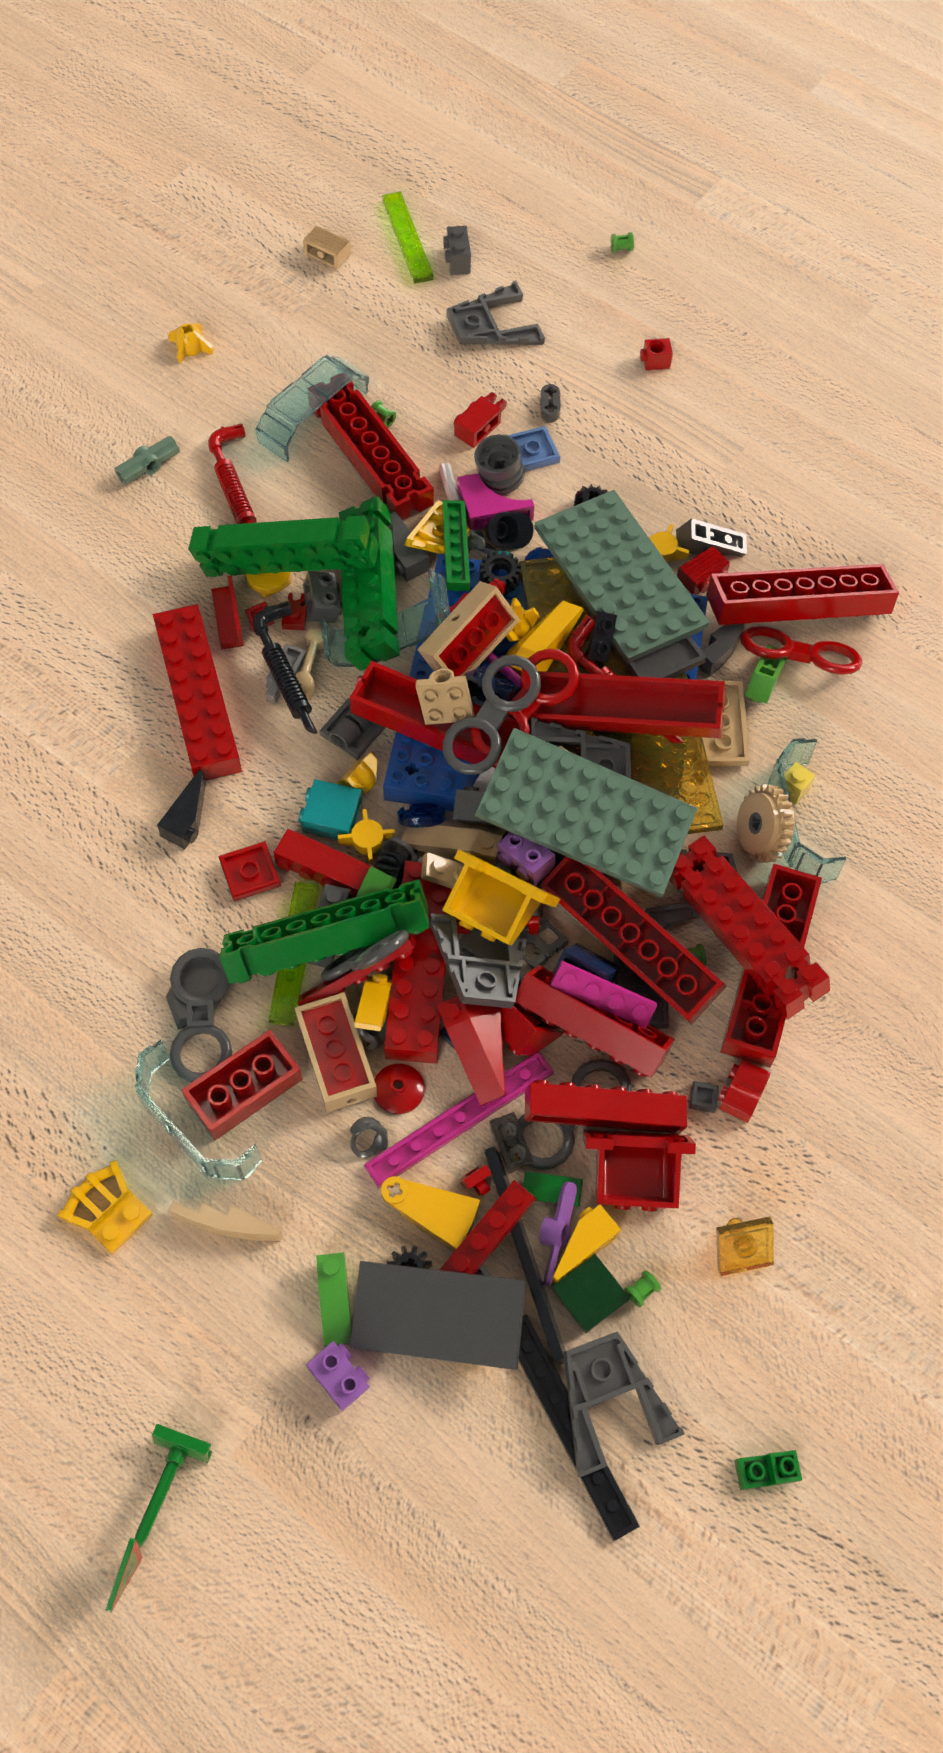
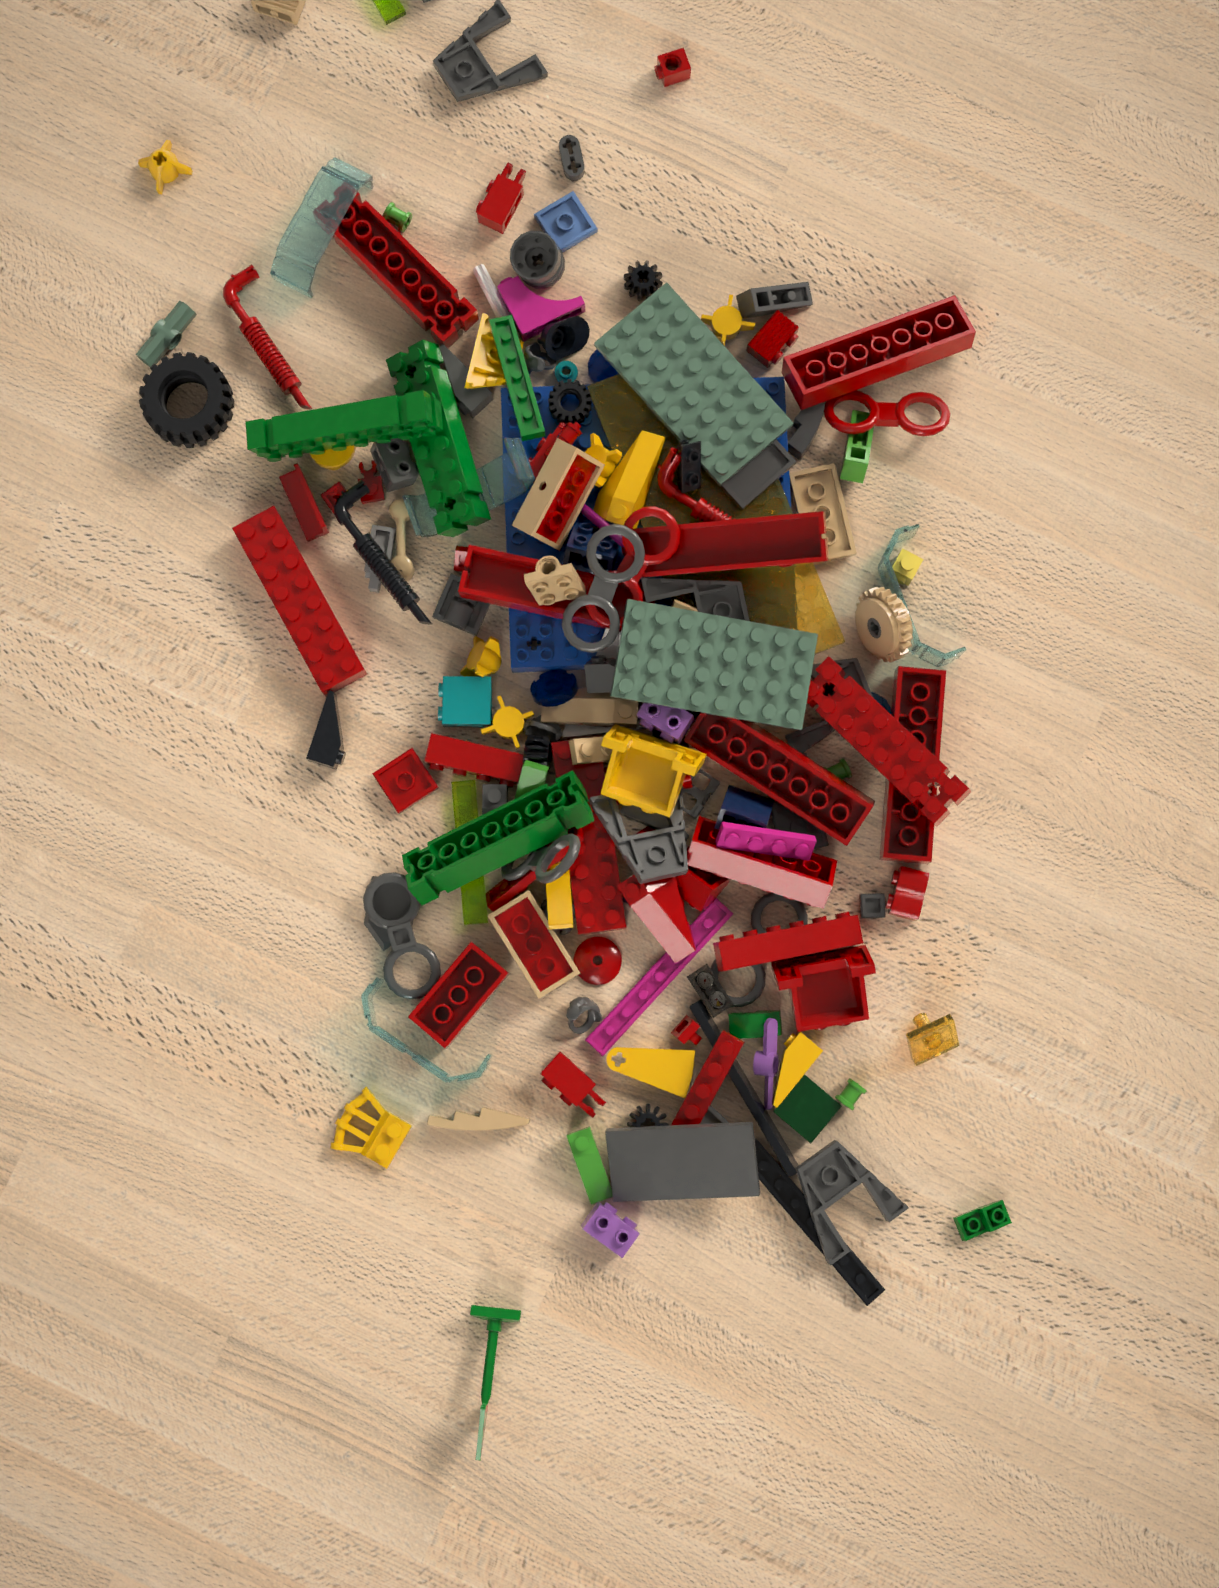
camera: 10 degrees left, 20 degrees up
(144, 487) = (169, 376): none -> black tyre
(337, 1204) = (570, 1082): none -> red hinge

